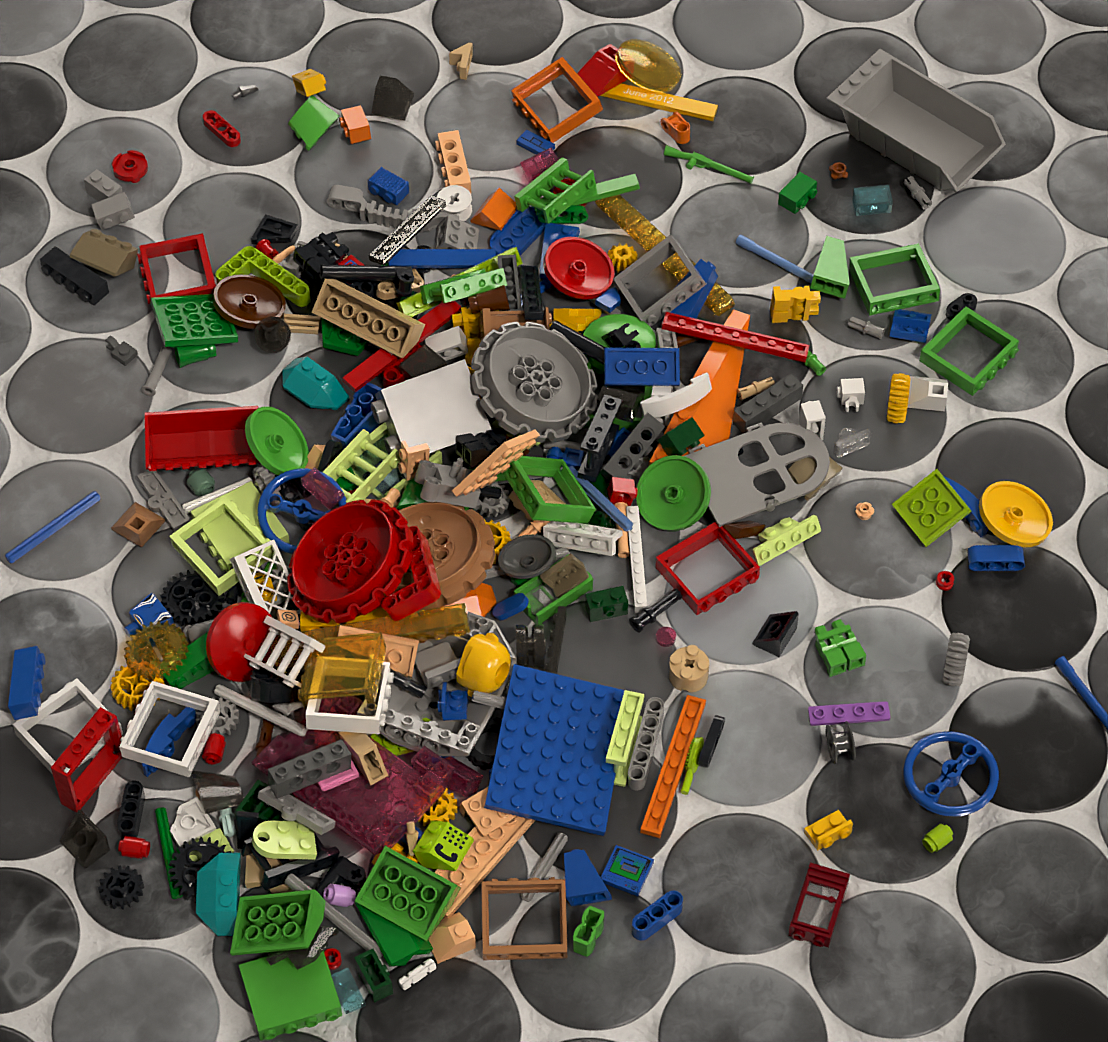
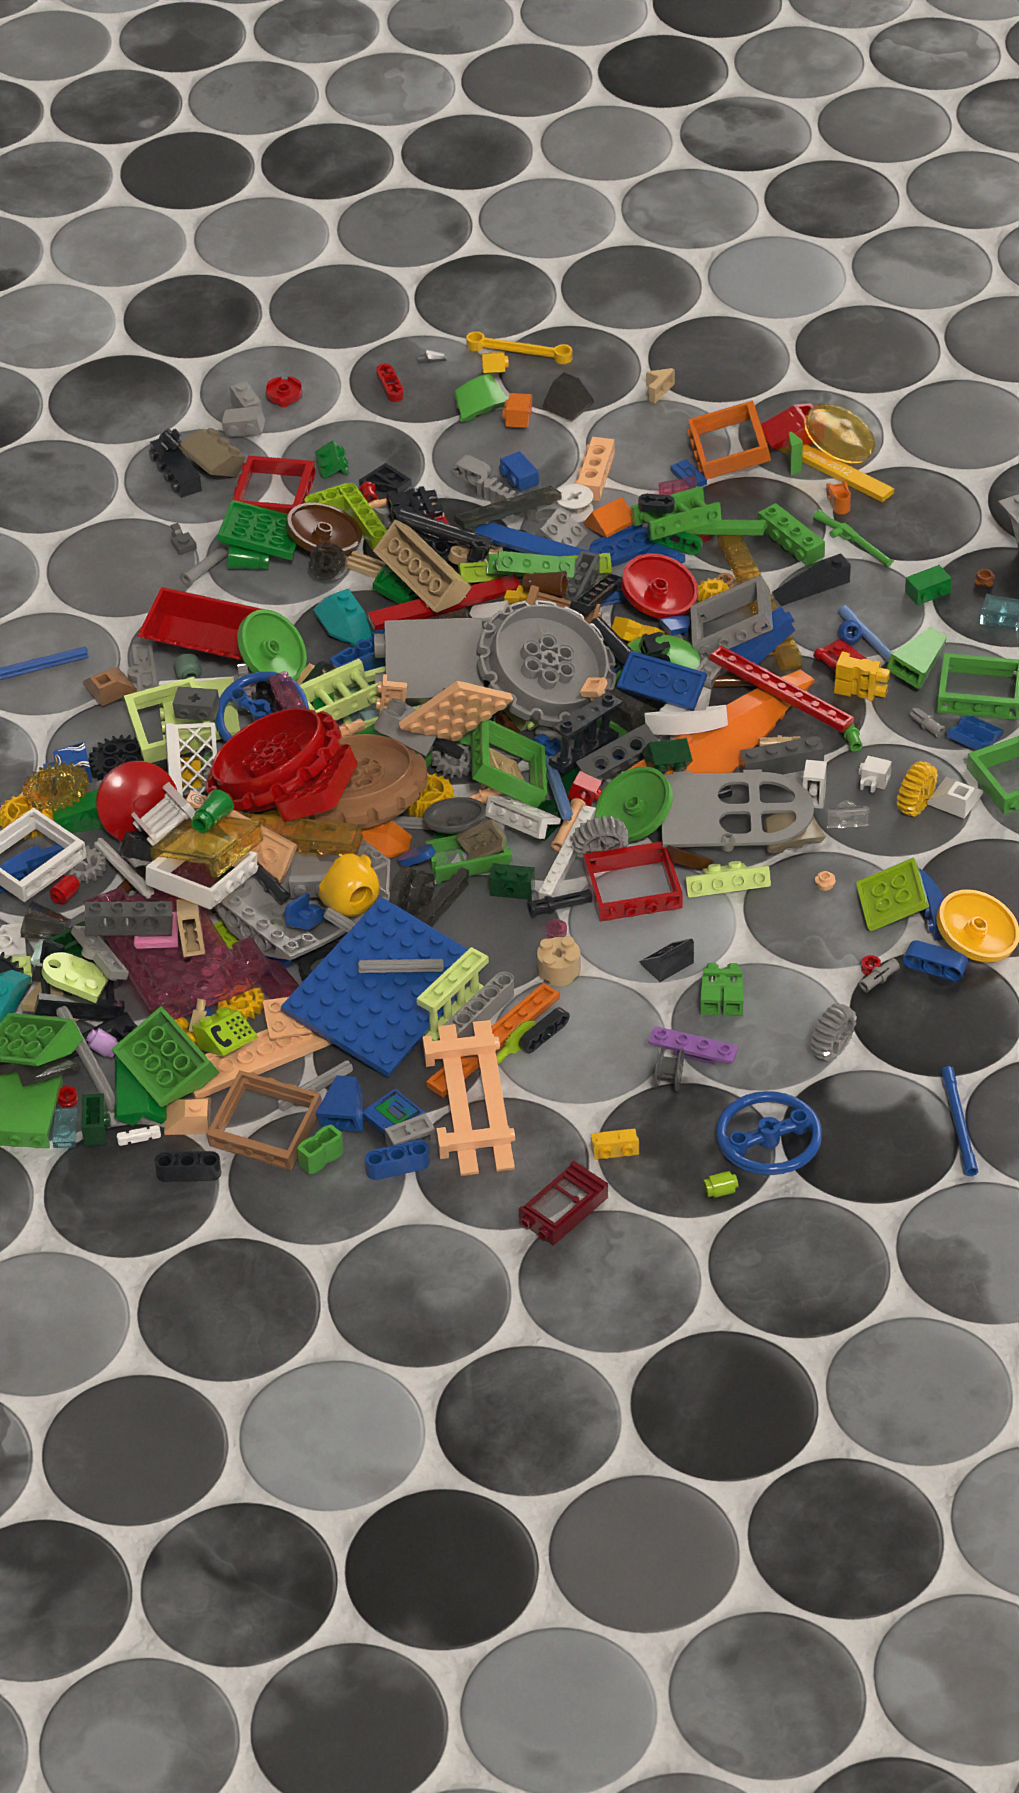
camera: 25 degrees right, 10 degrees down
(62, 253) = (170, 439): none -> black gear
(213, 225) = (331, 459): none -> green bracket
(246, 525) = (196, 703): none -> dark grey brick
(318, 58) = (562, 353): none -> yellow piece
(334, 637) = (215, 808): none -> green plant
(475, 998) = (188, 1166): none -> black beam
(537, 187) = (656, 503): none -> black beam
(566, 727) = (400, 965): none -> light grey axle
(590, 394) = (594, 687): none -> light nougat tile
(620, 97) = (795, 452): none -> bright green slope
(625, 238) = (728, 578): none -> medium nougat bush
(655, 885) = (409, 1131): none -> light grey hinge
(658, 178) = (792, 534): none -> bright green brick
(664, 536) = (599, 835): none -> light grey gear
(699, 214) = (814, 580): none -> black wedge
(702, 875) = (464, 1139): none -> light nougat fence
(758, 260) = (850, 632): none -> blue piece
(759, 282) = (834, 651): none -> red plate
(957, 587) = (888, 967): none -> light grey pin

